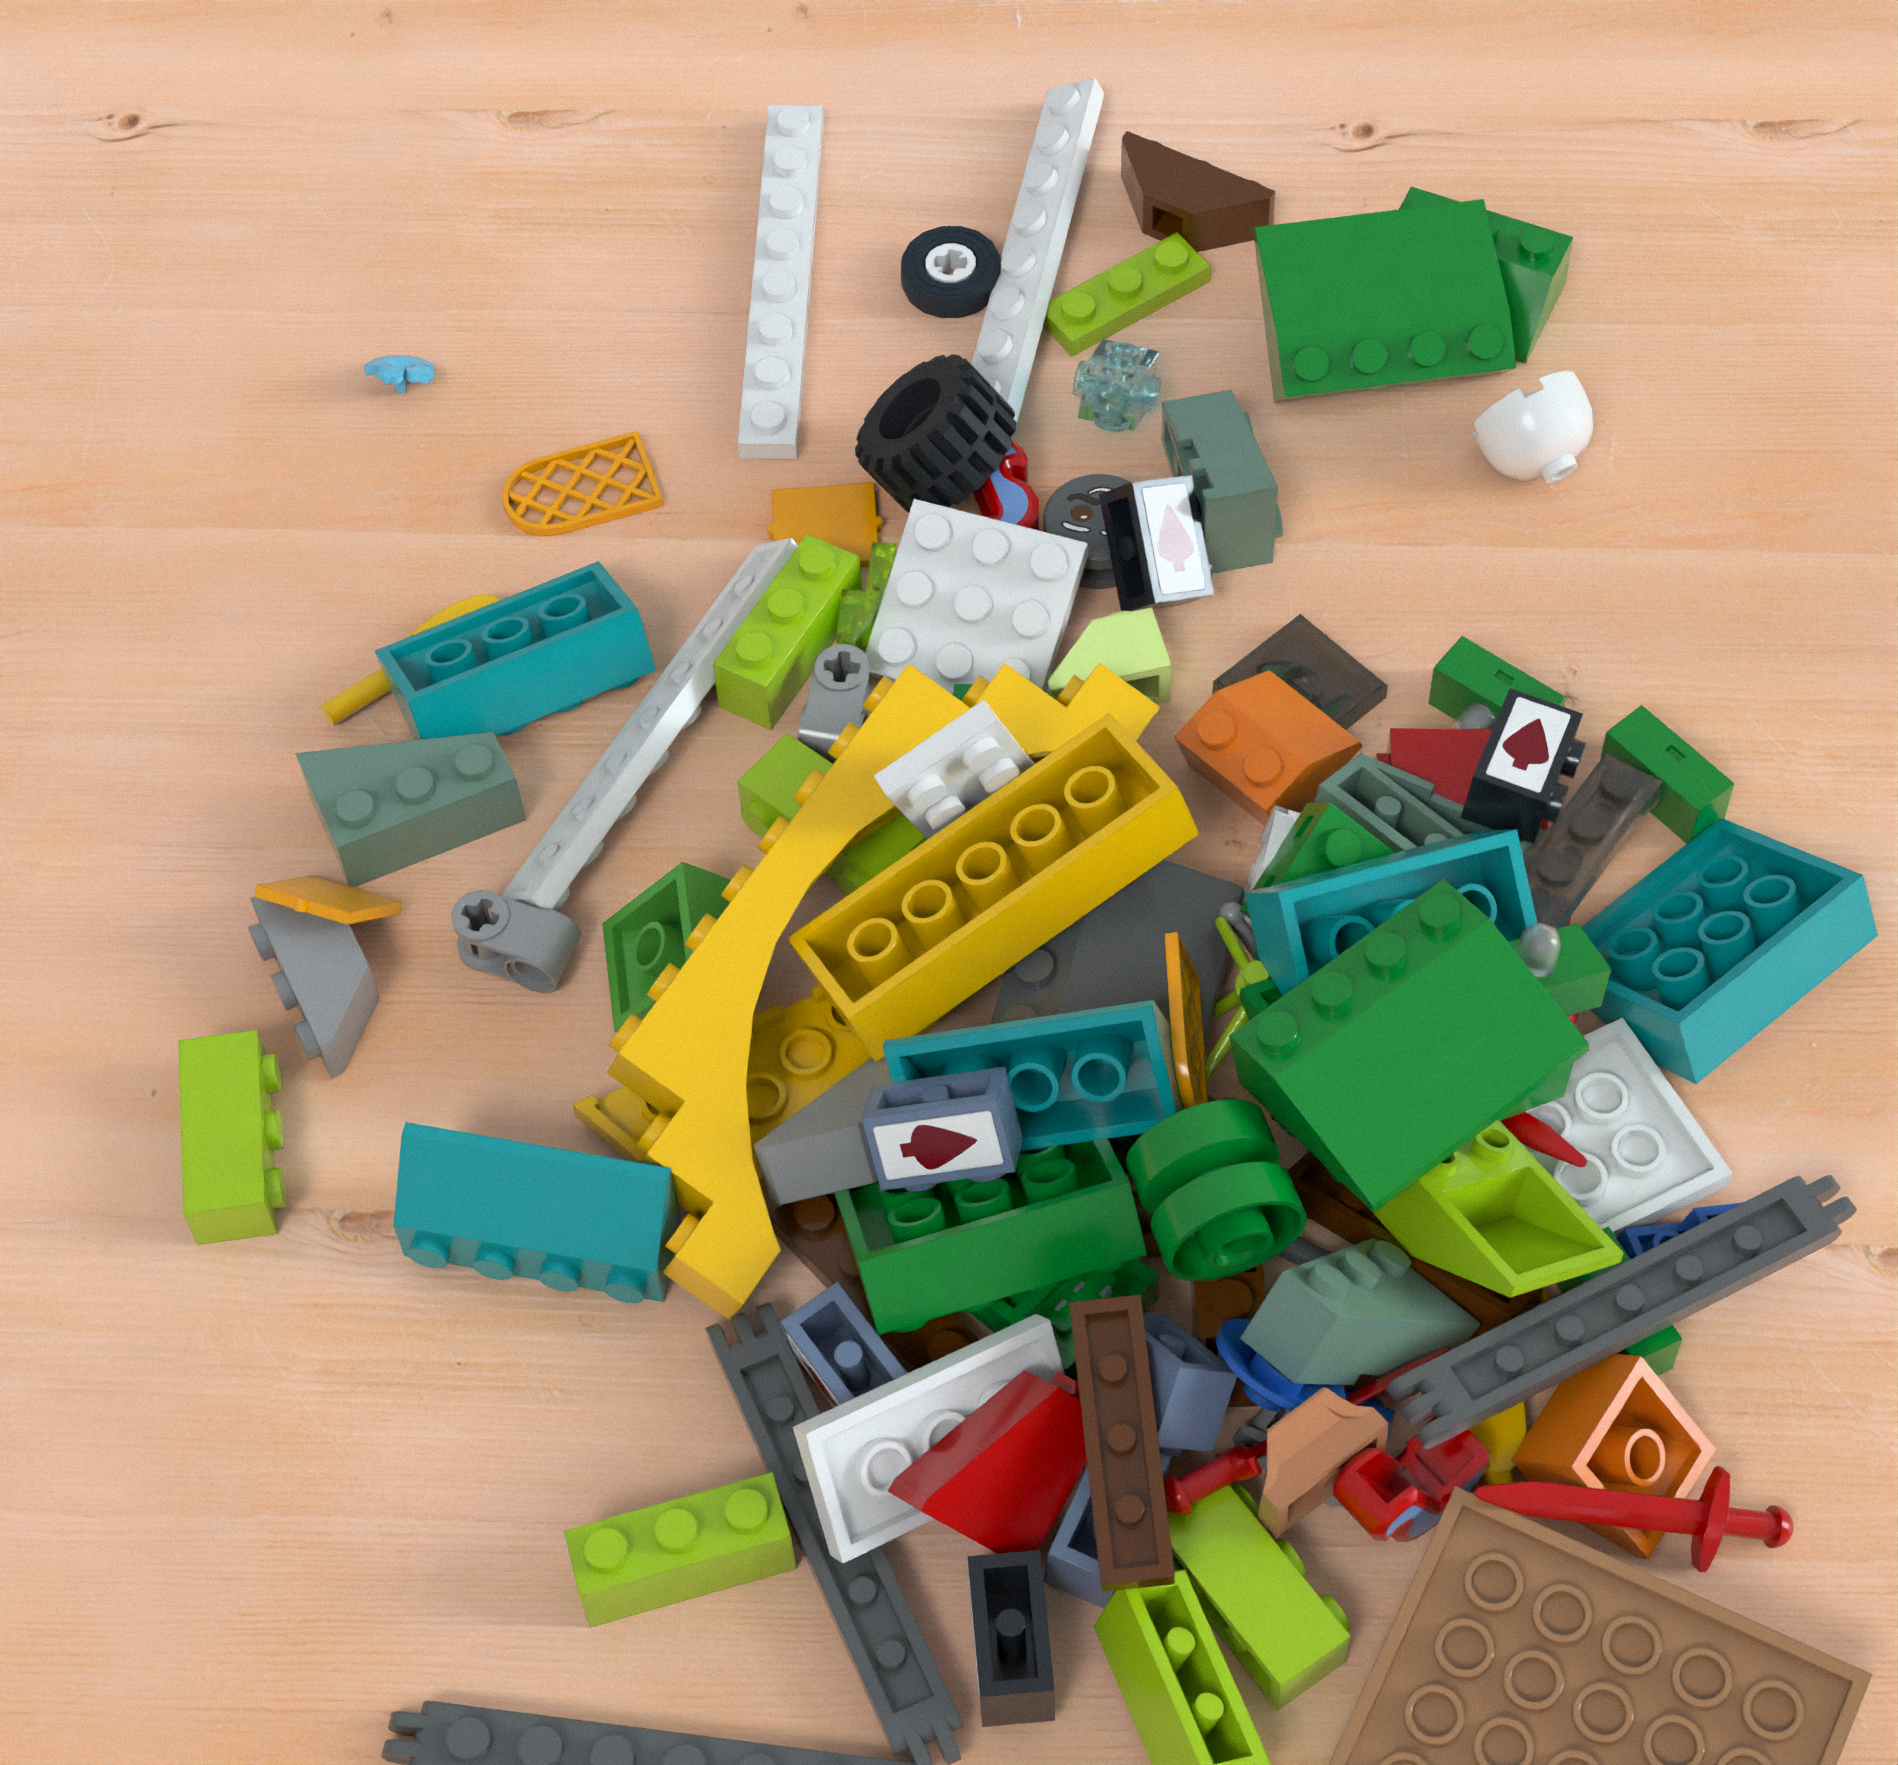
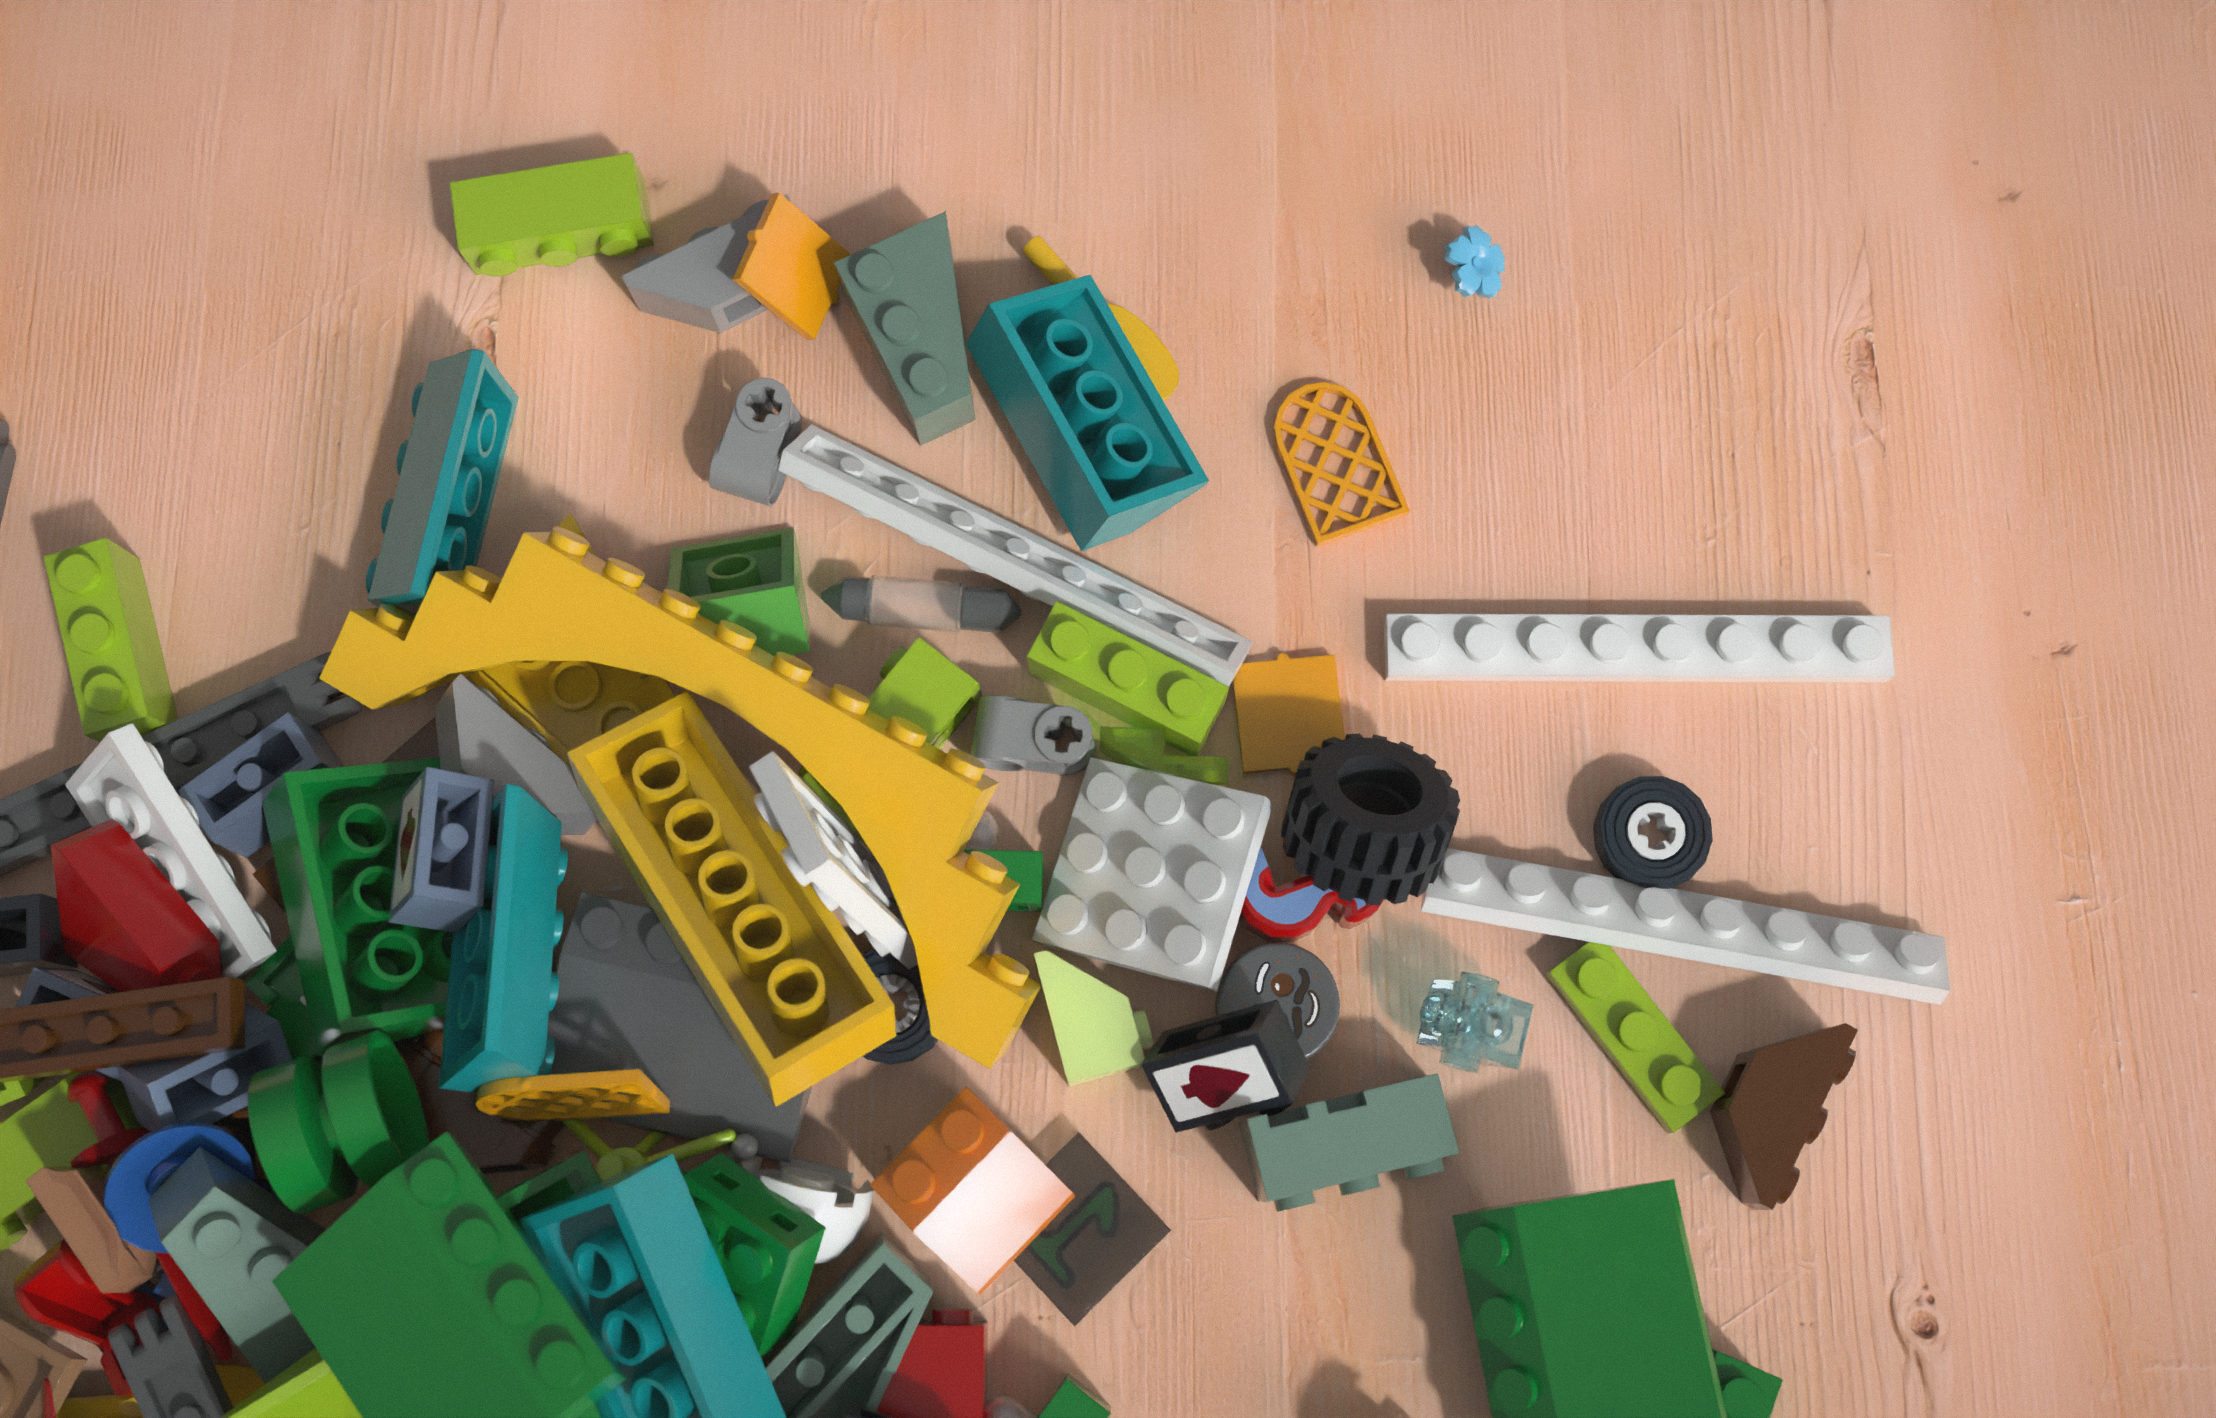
camera: 85 degrees right, 20 degrees up
(697, 799) = (921, 604): none -> piece

